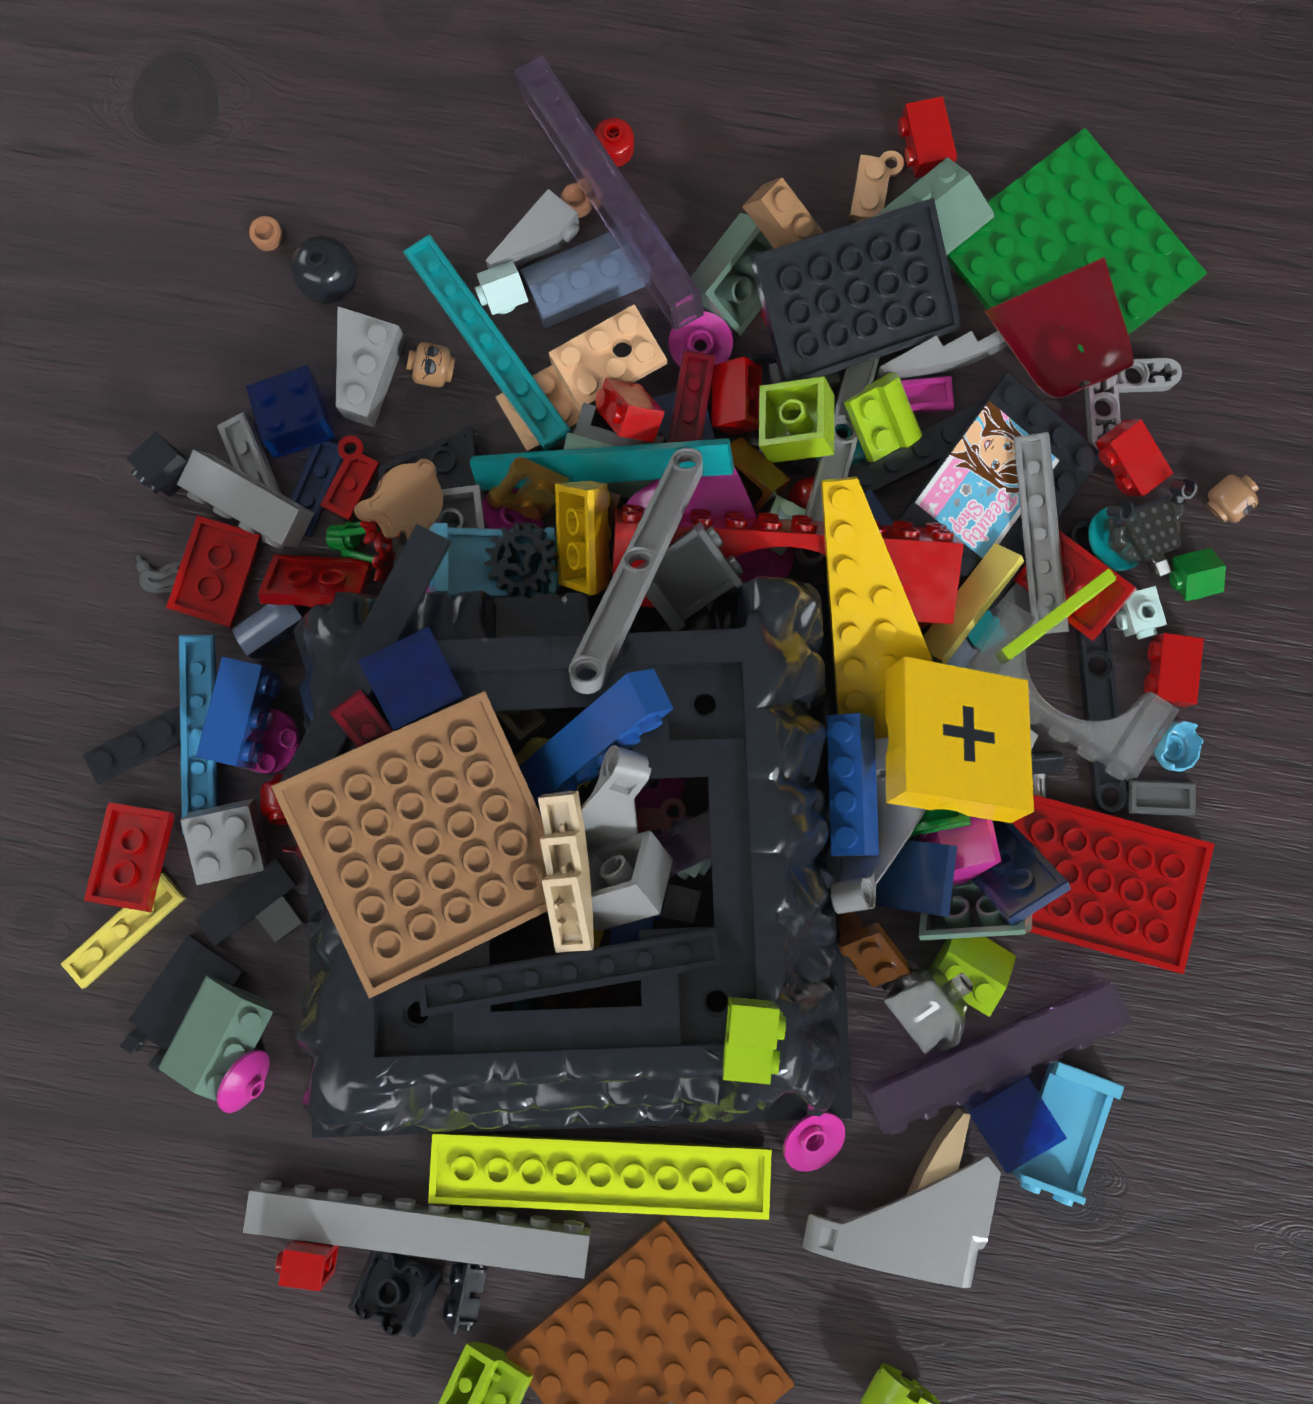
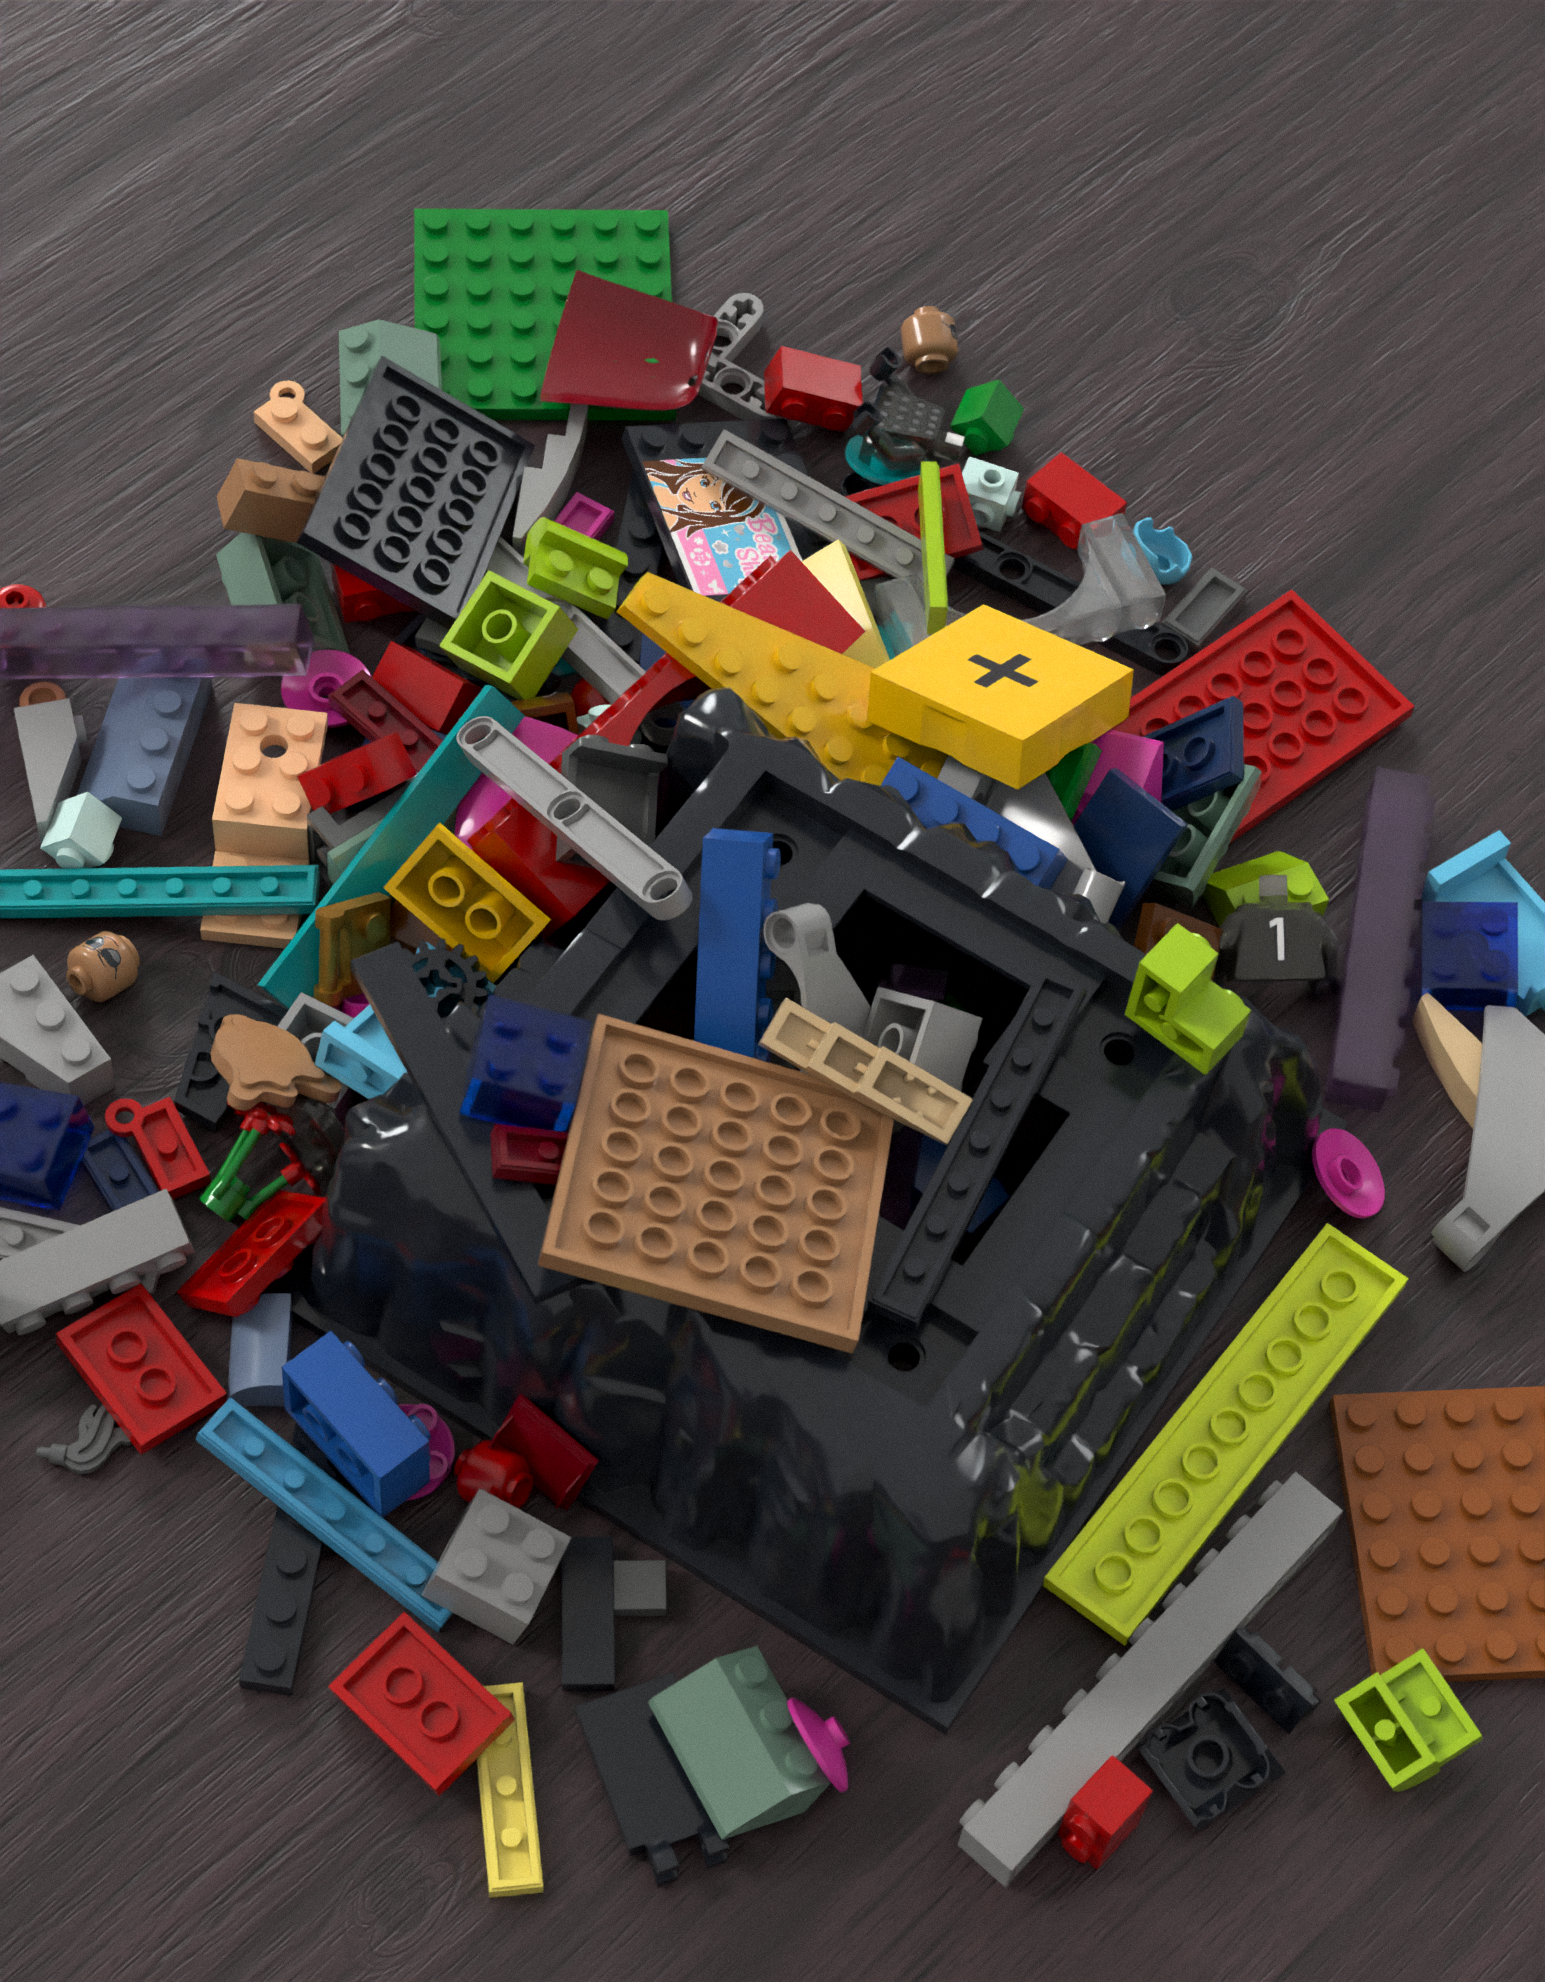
camera: 65 degrees left, 25 degrees down
(926, 135) = (293, 341): red brick -> none

